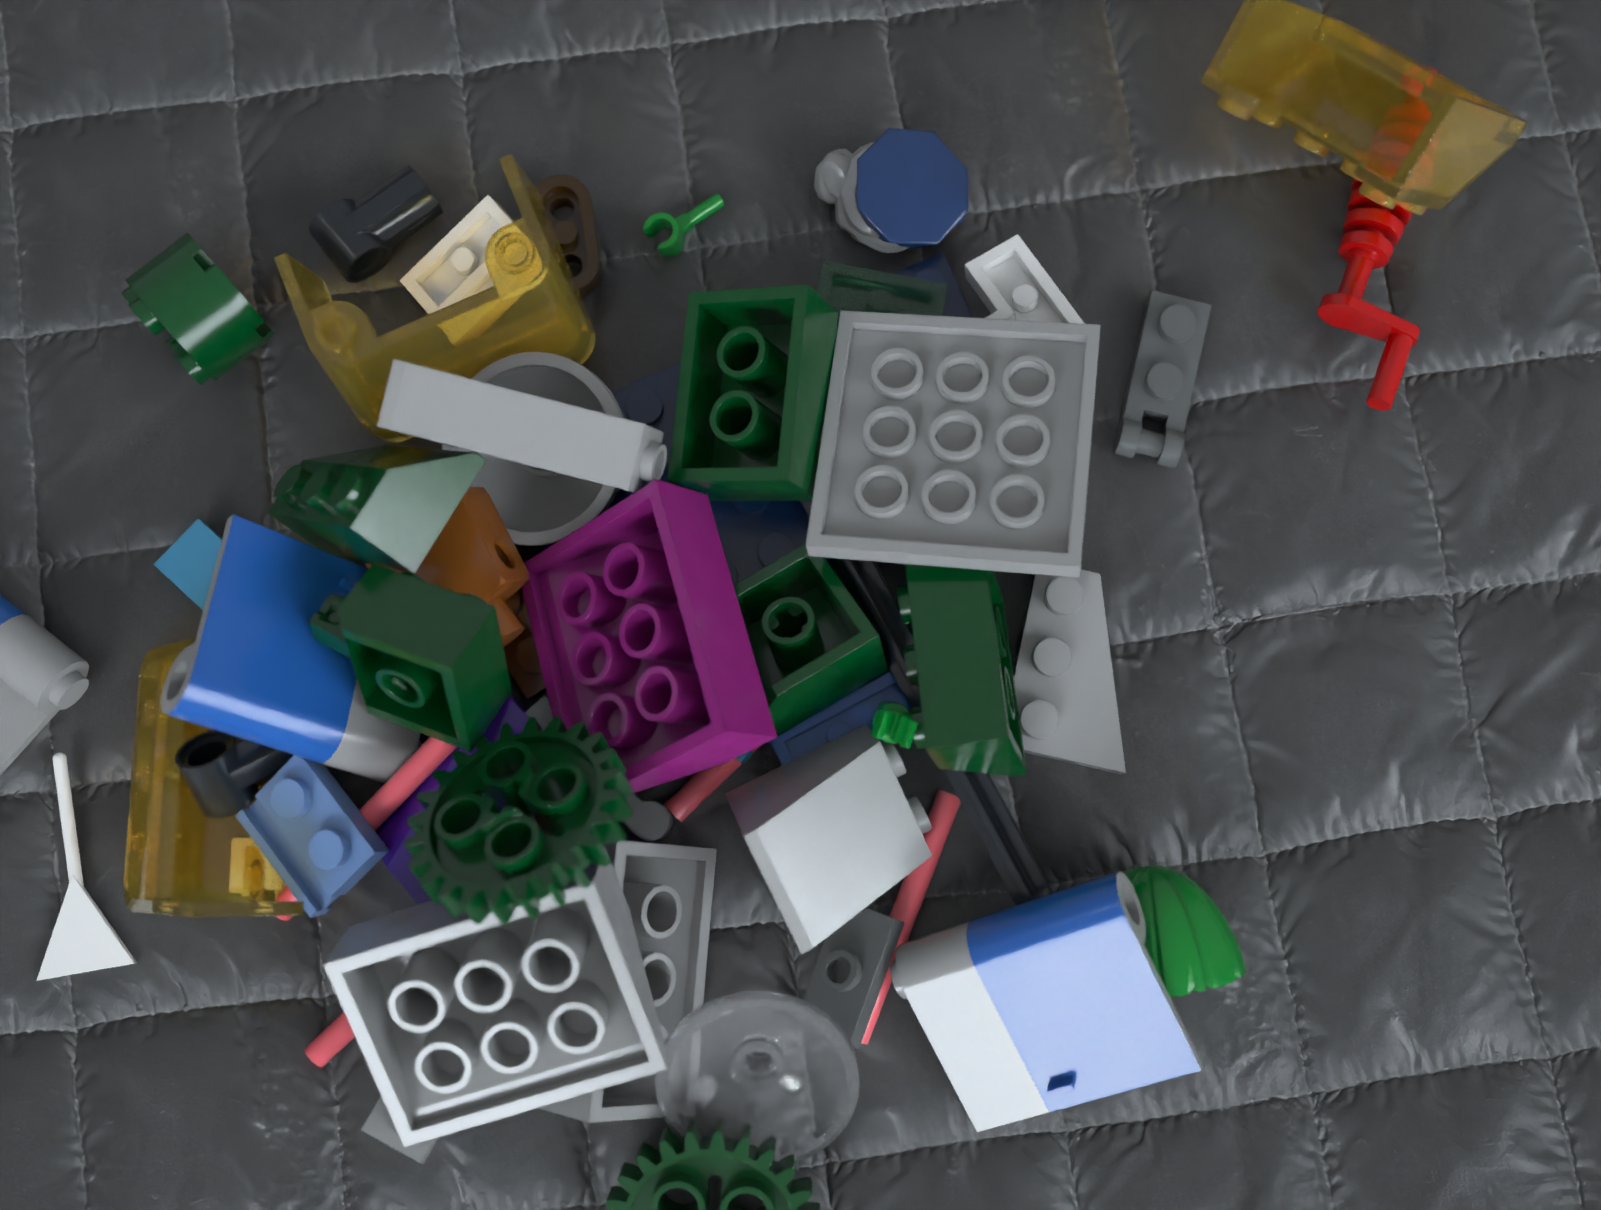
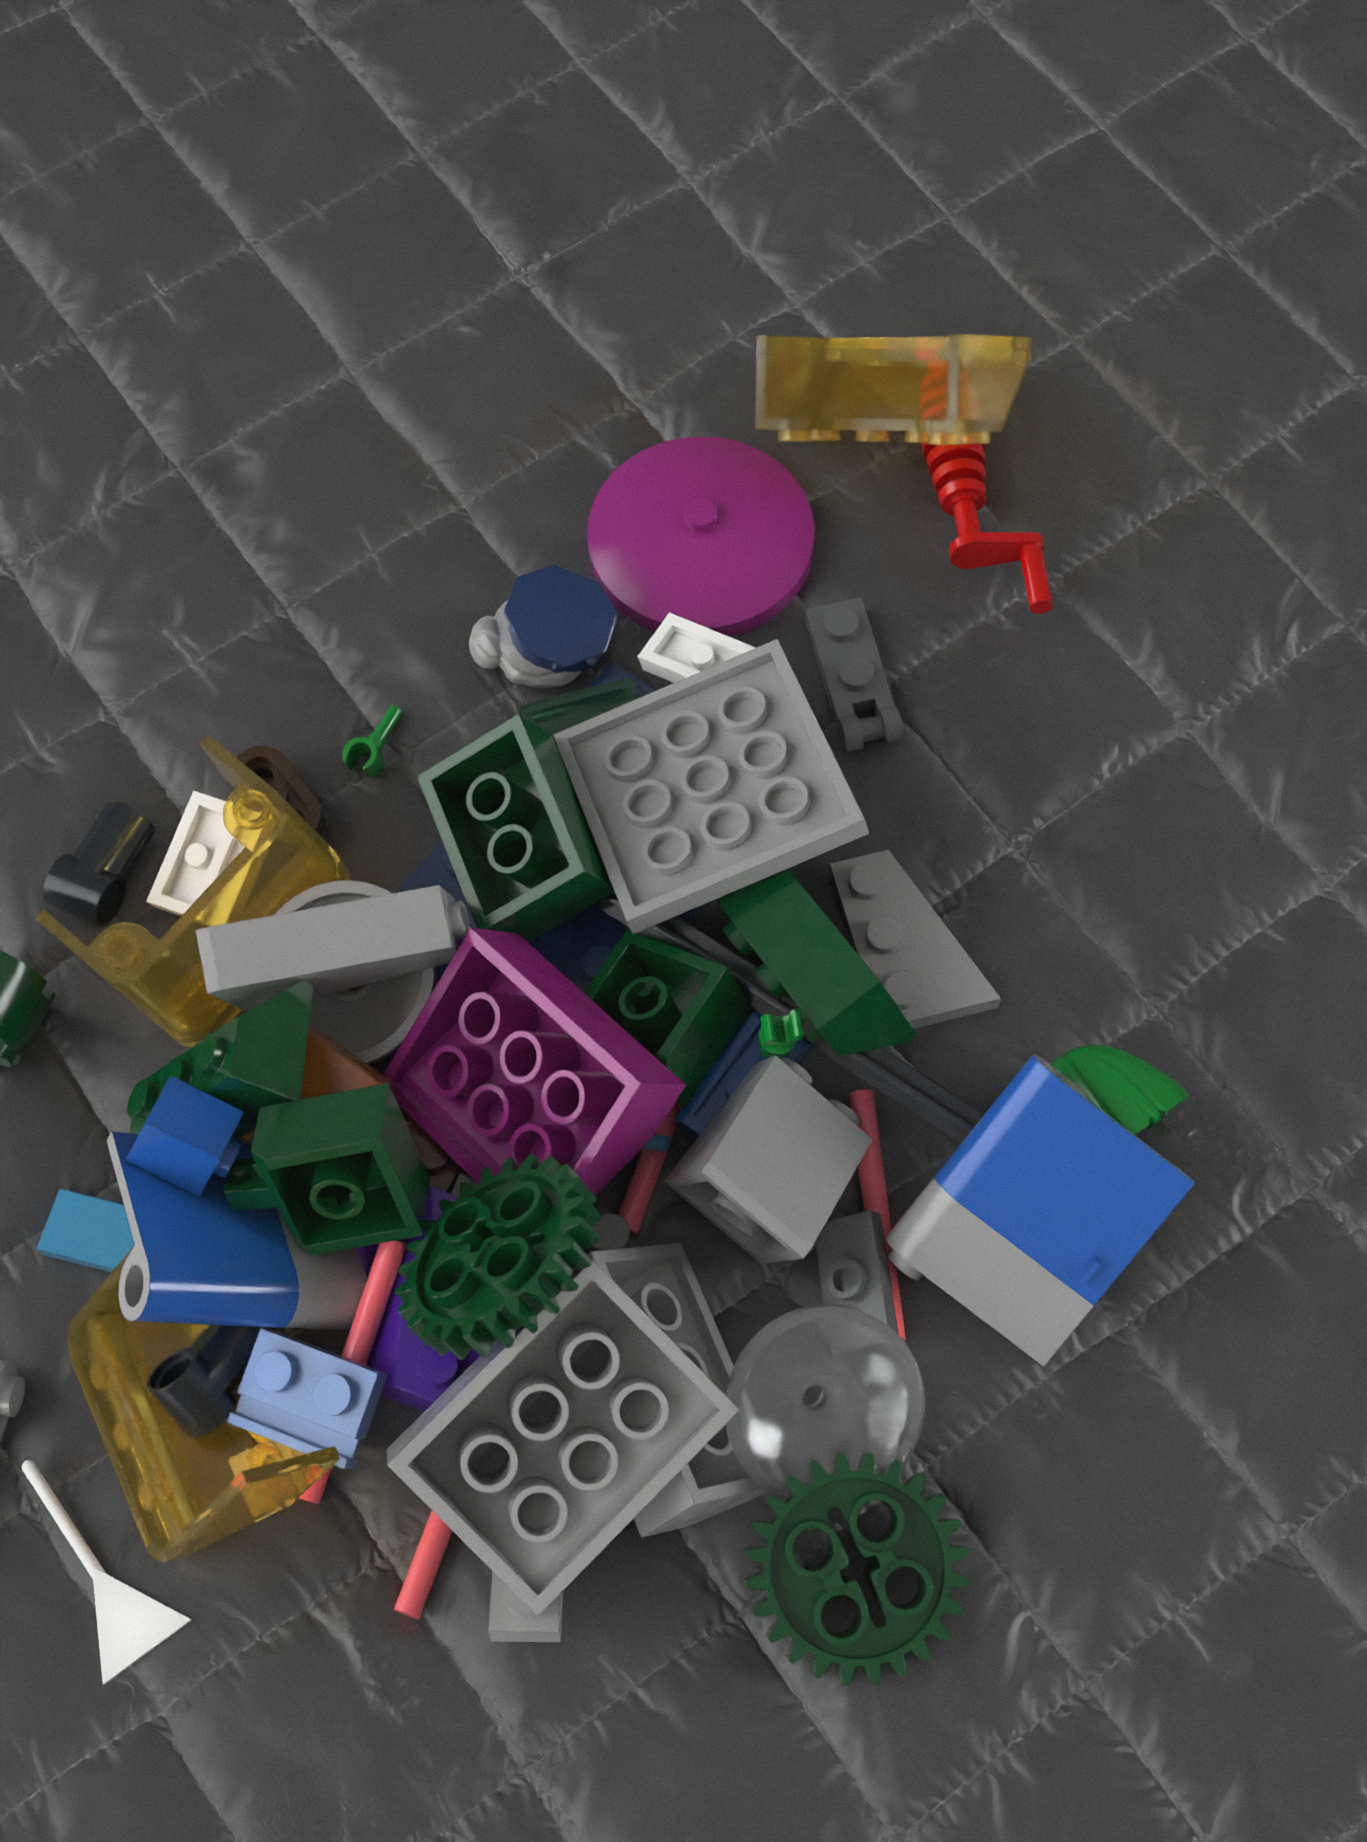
camera: 20 degrees left, 15 degrees down
(296, 557) = (187, 1137): none -> blue brick
(1093, 162) = (701, 535): none -> magenta dish

